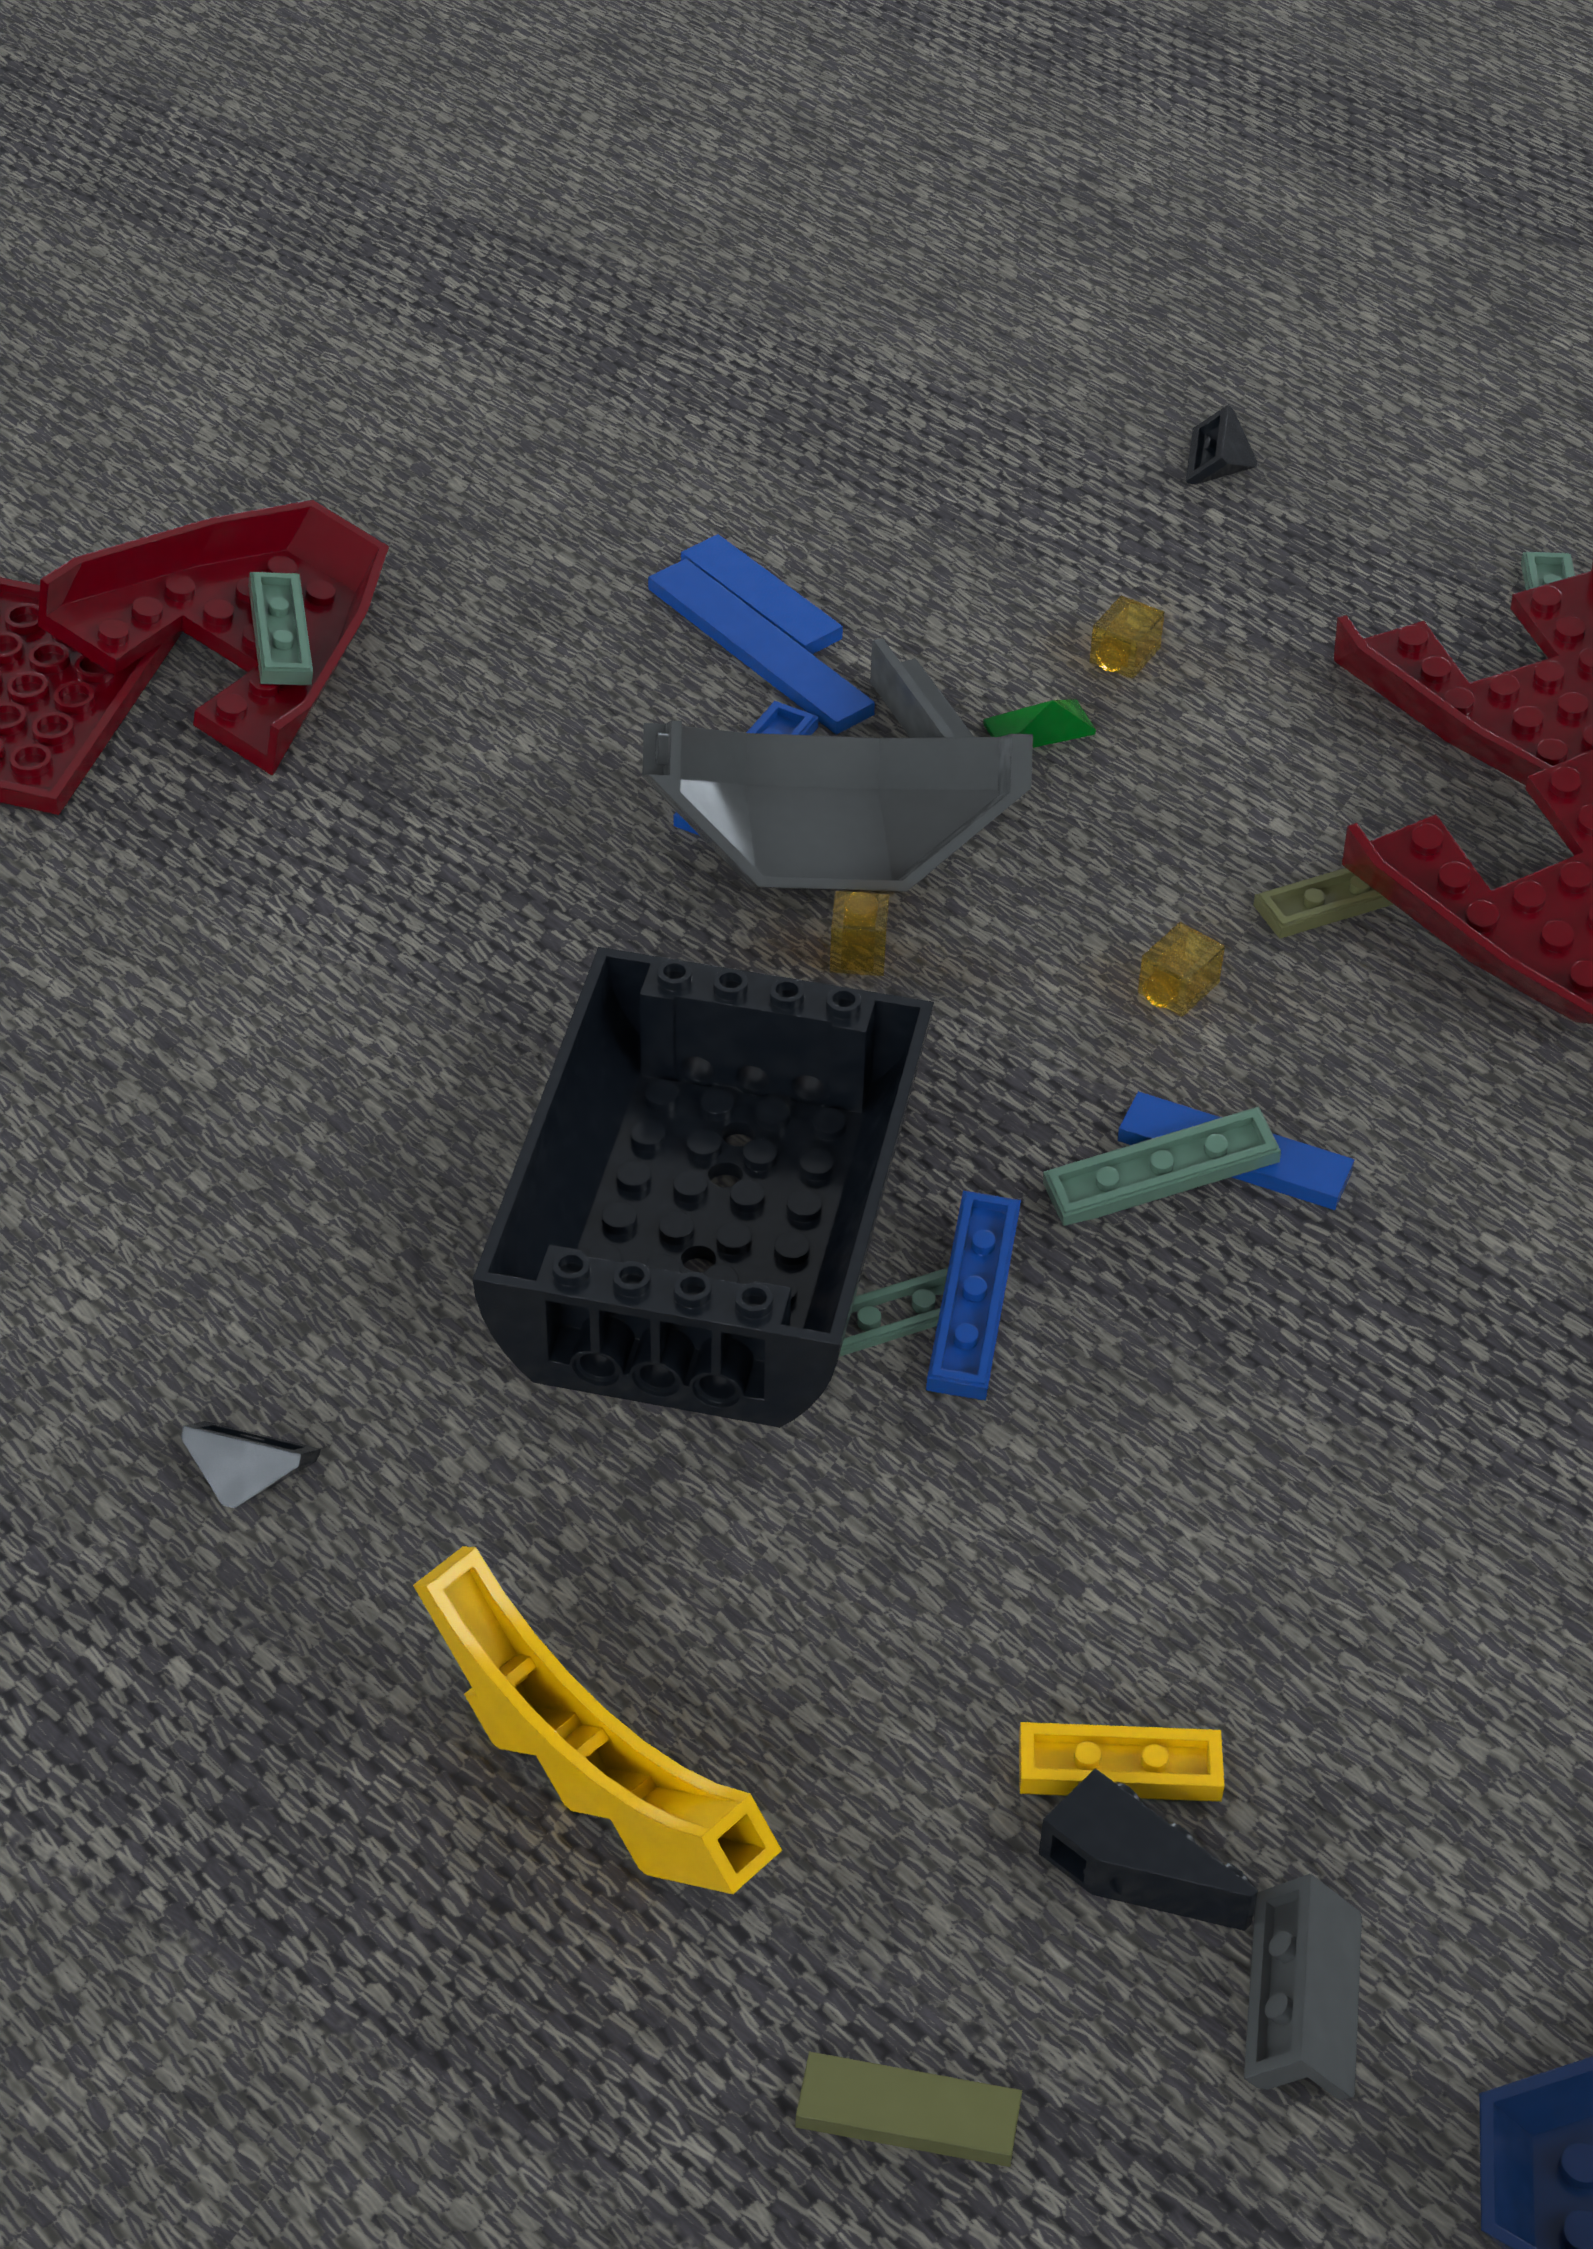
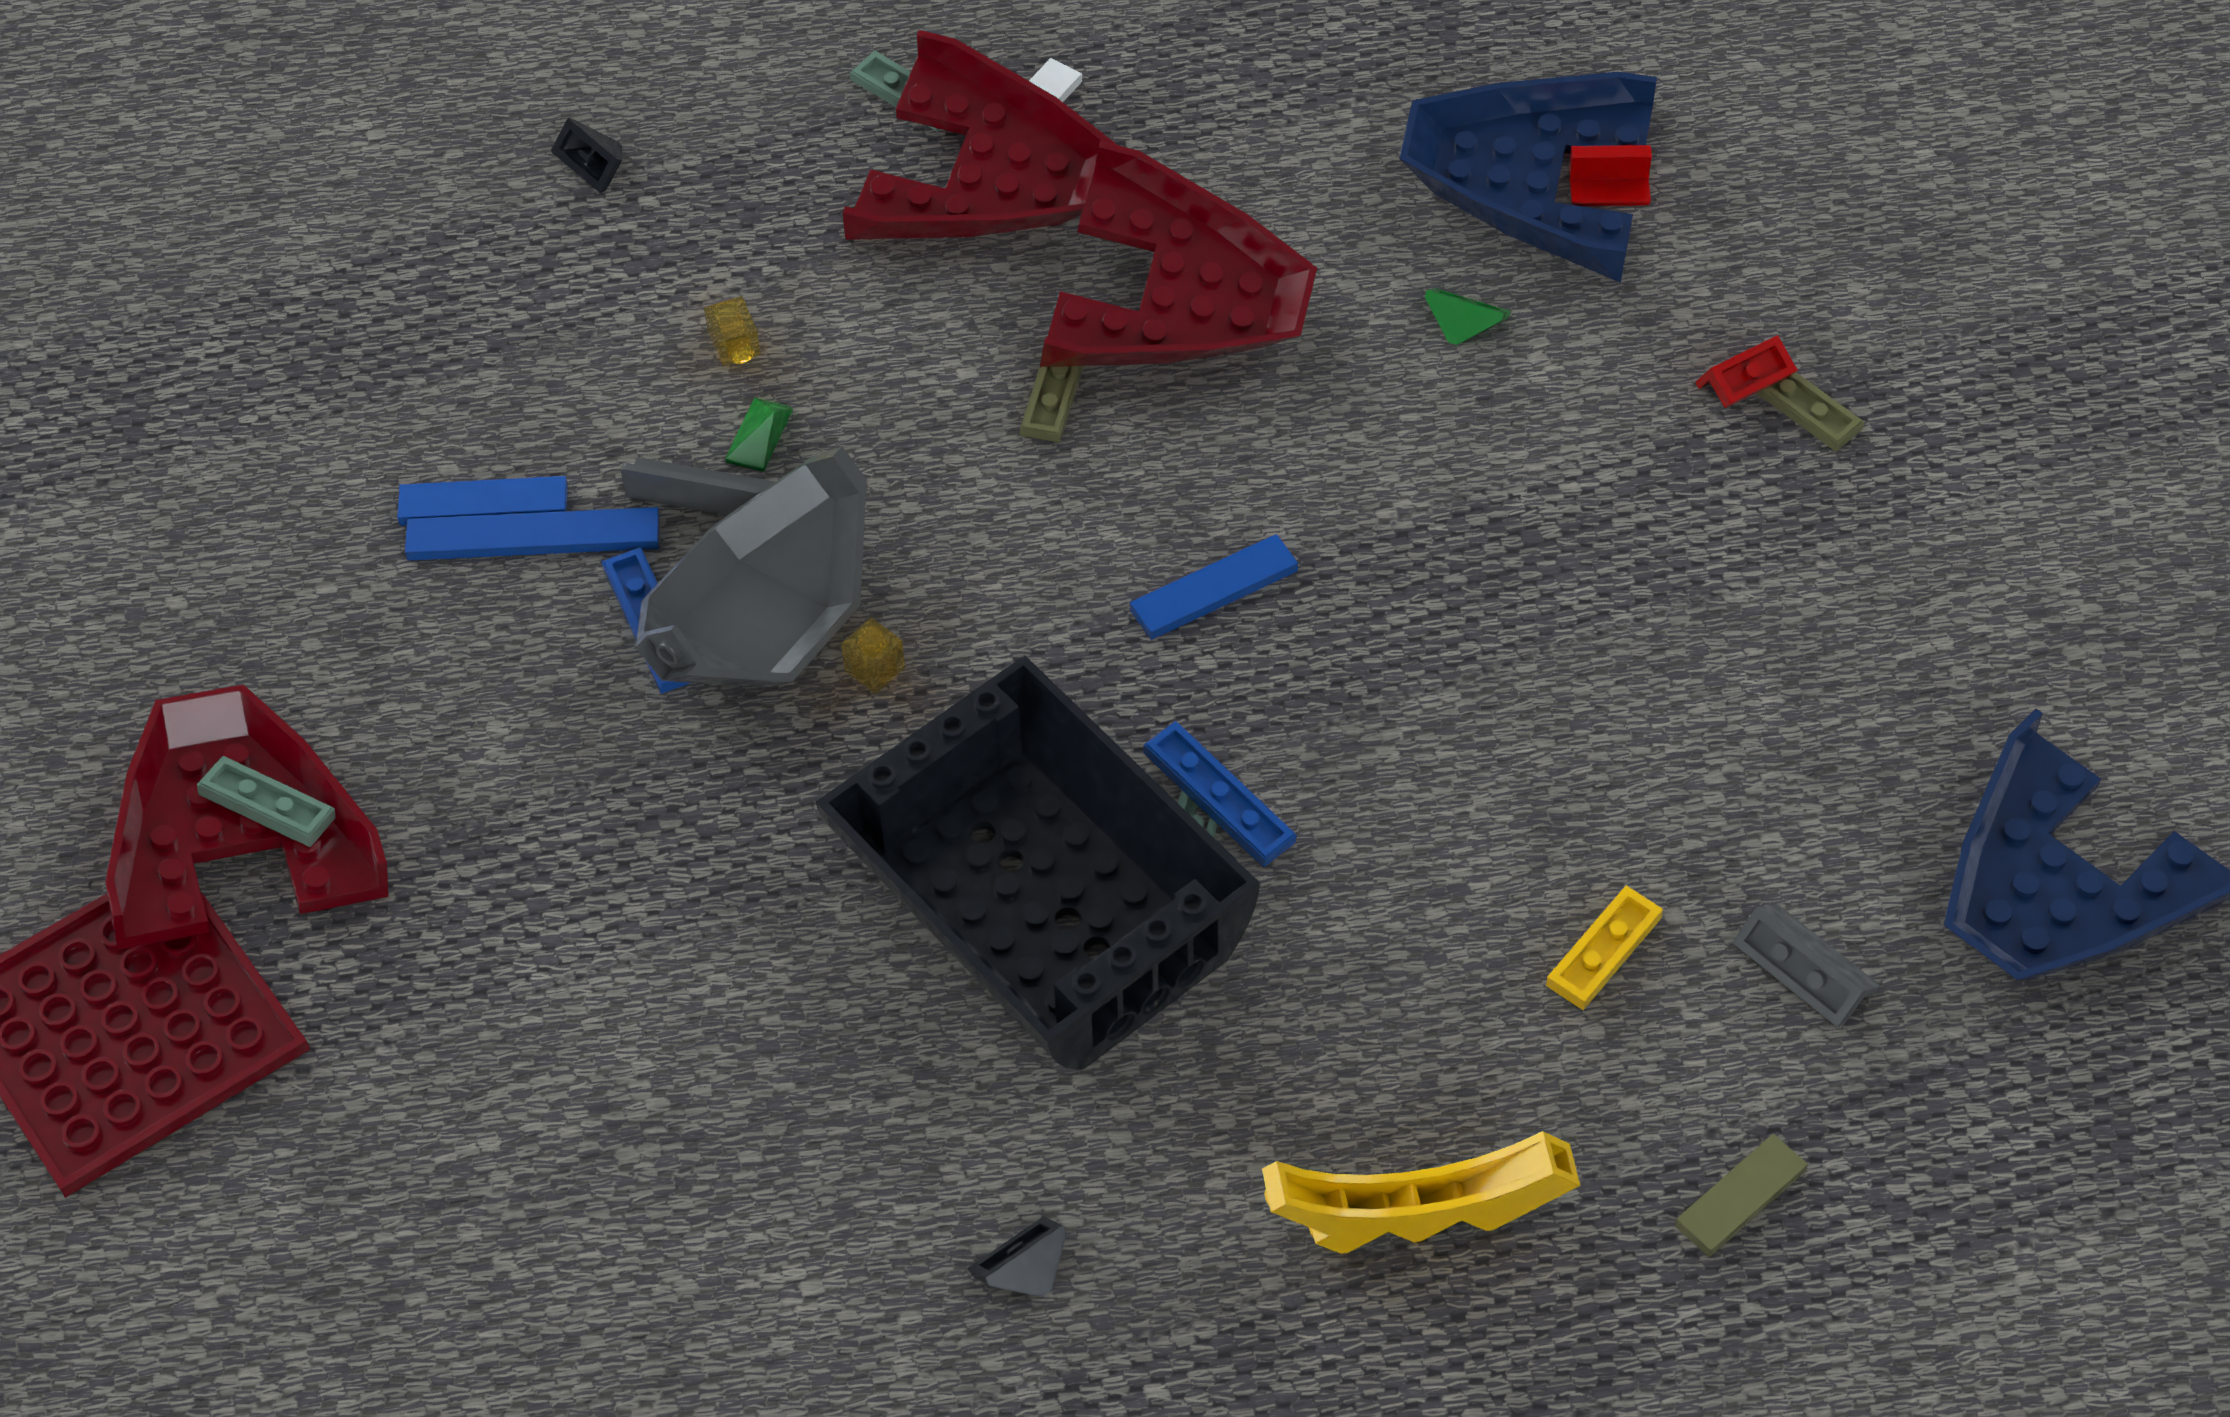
camera: 50 degrees left, 10 degrees up
(1134, 1856) = (1667, 983): black slope -> none
(1161, 1166) = (1201, 632): sand green tile -> none
(1180, 969) = (1053, 511): clear yellow brick -> none

